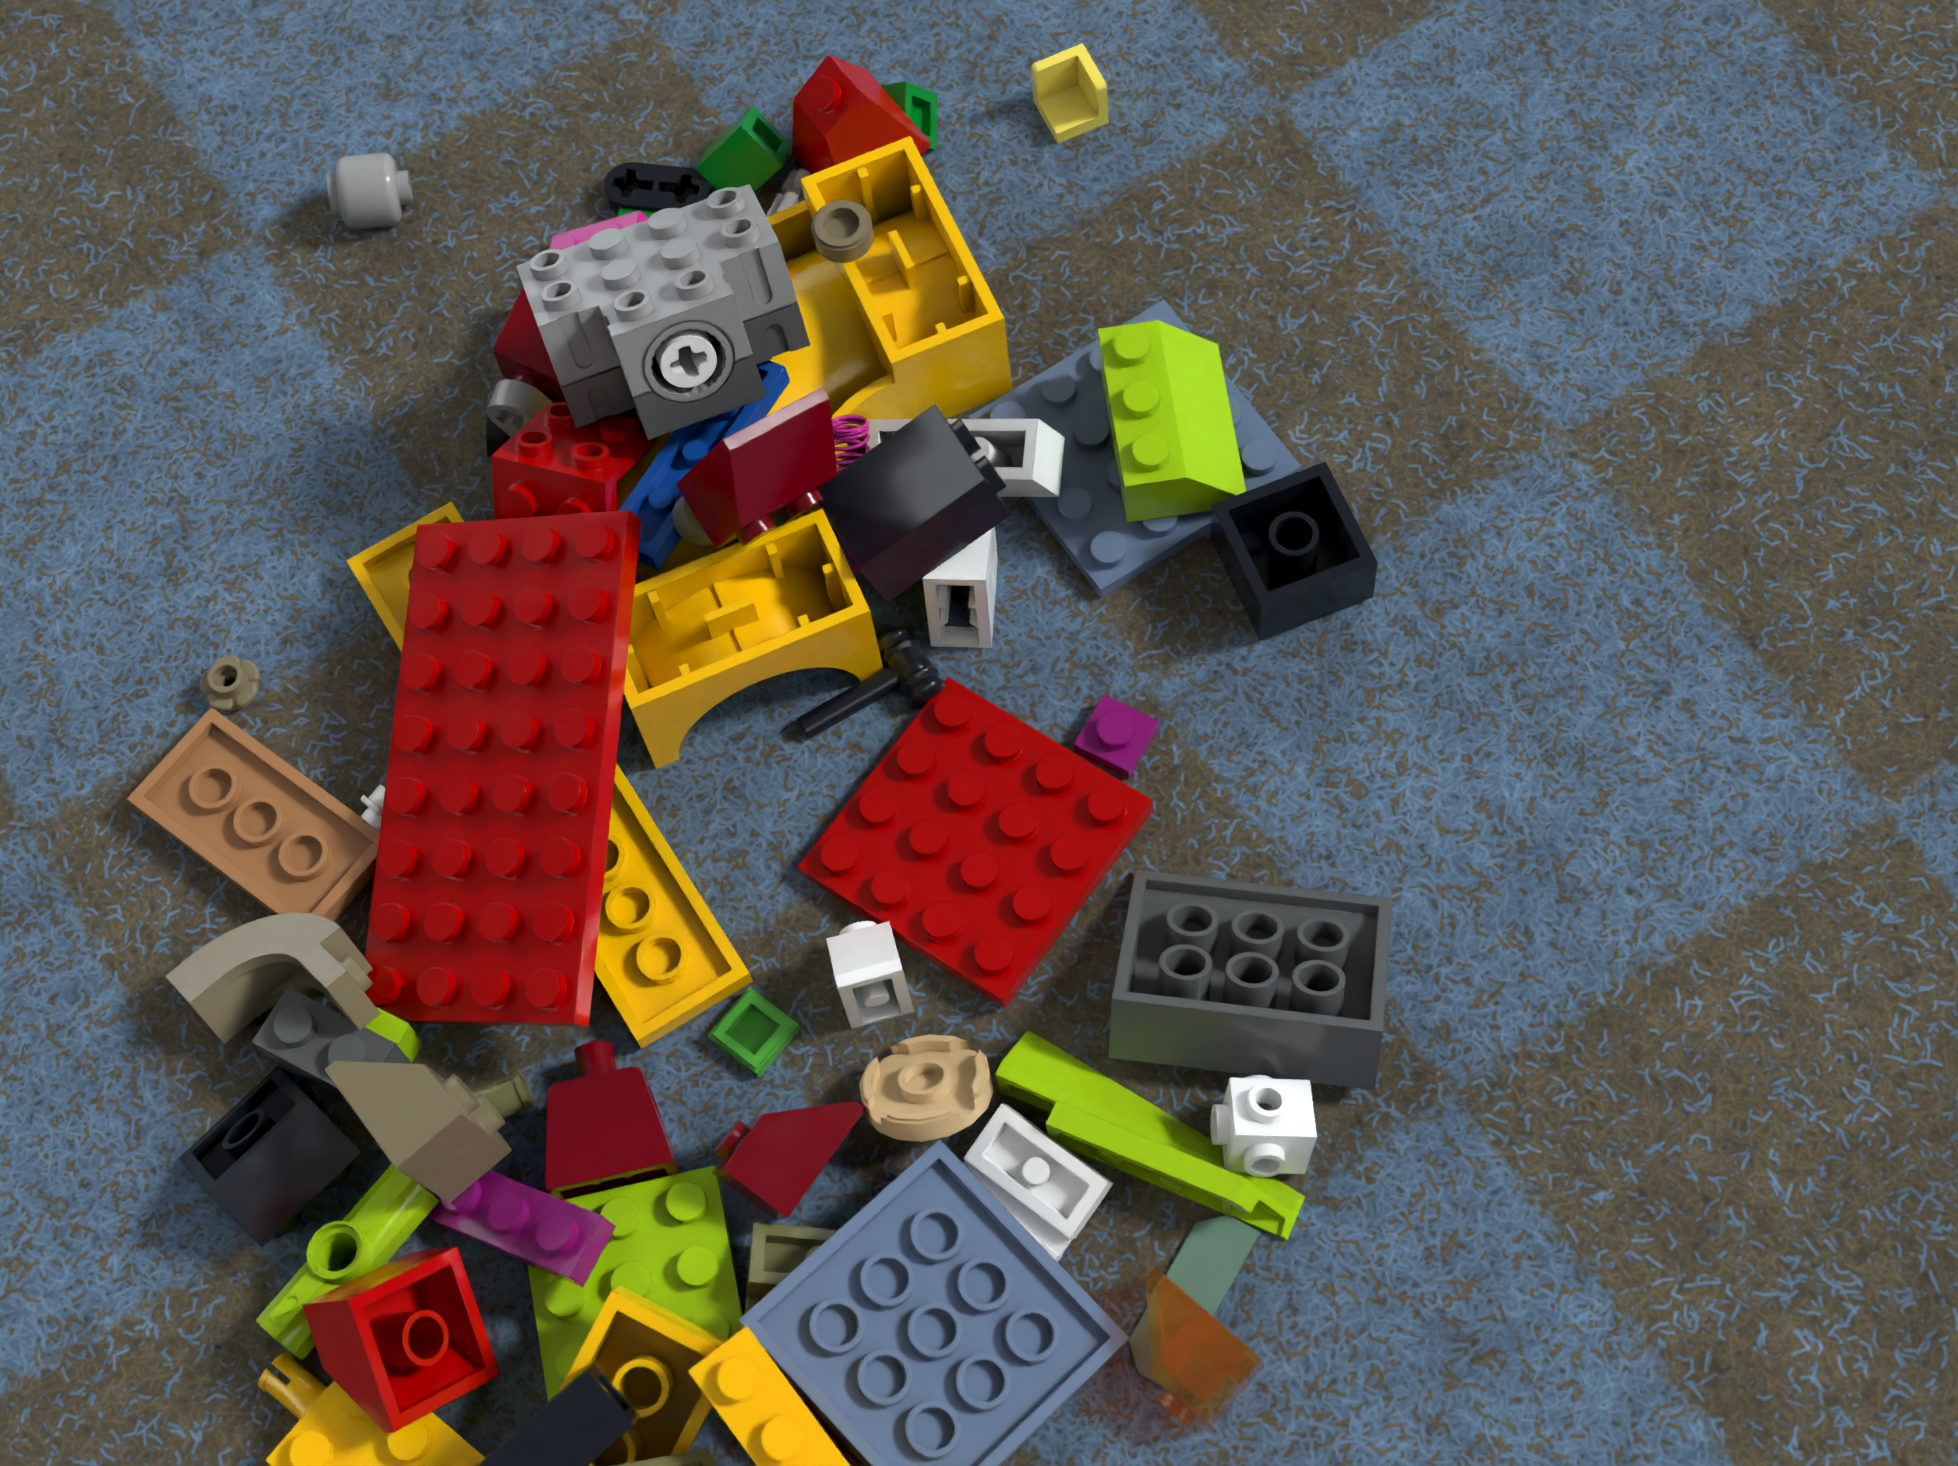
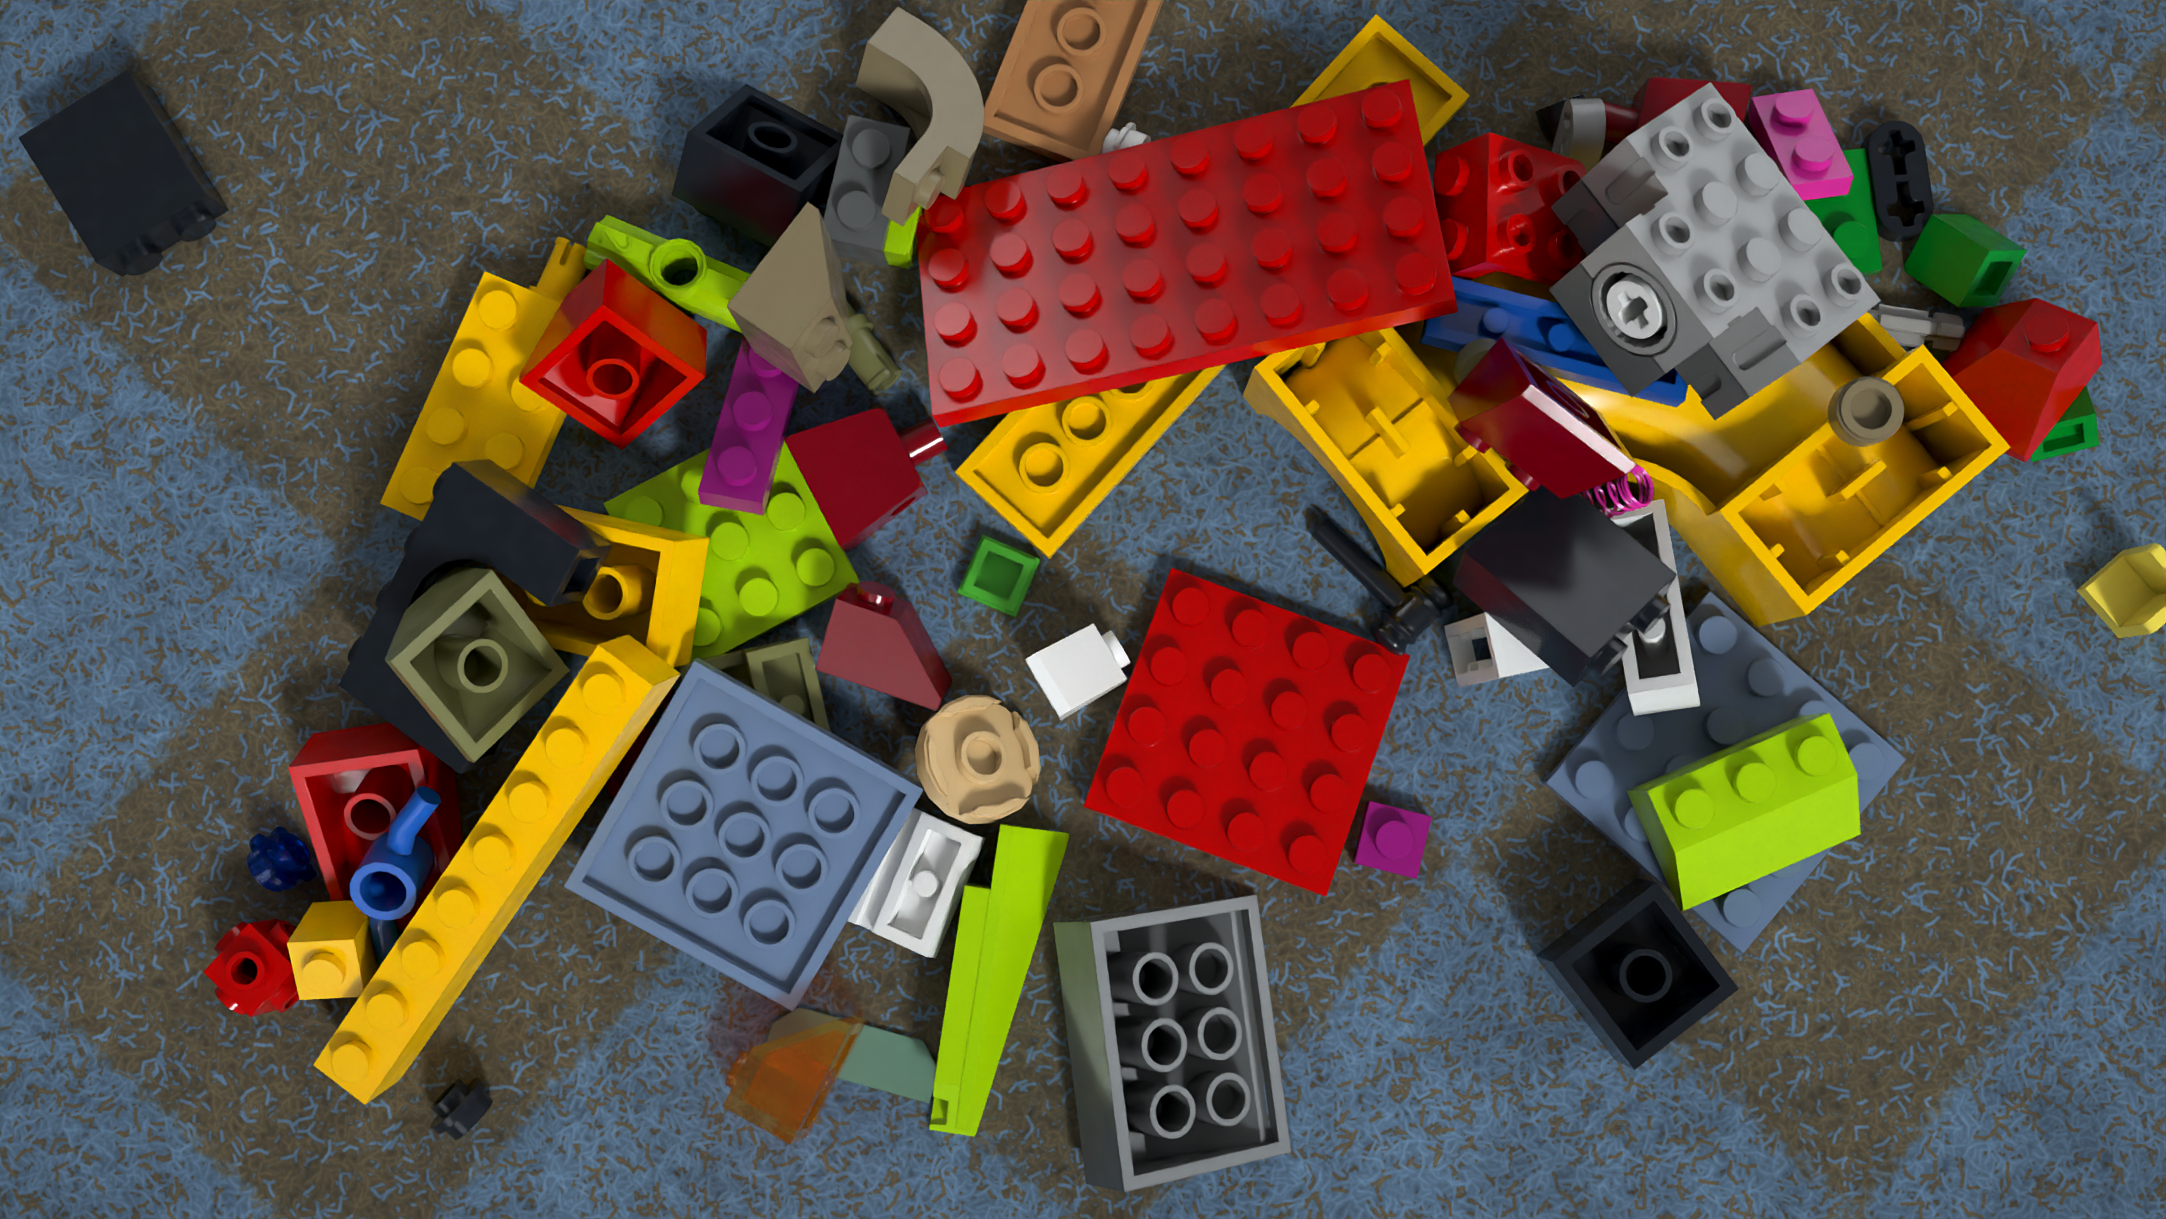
camera: 65 degrees right, 20 degrees up
(1265, 1126) = (1020, 1090): white brick -> none

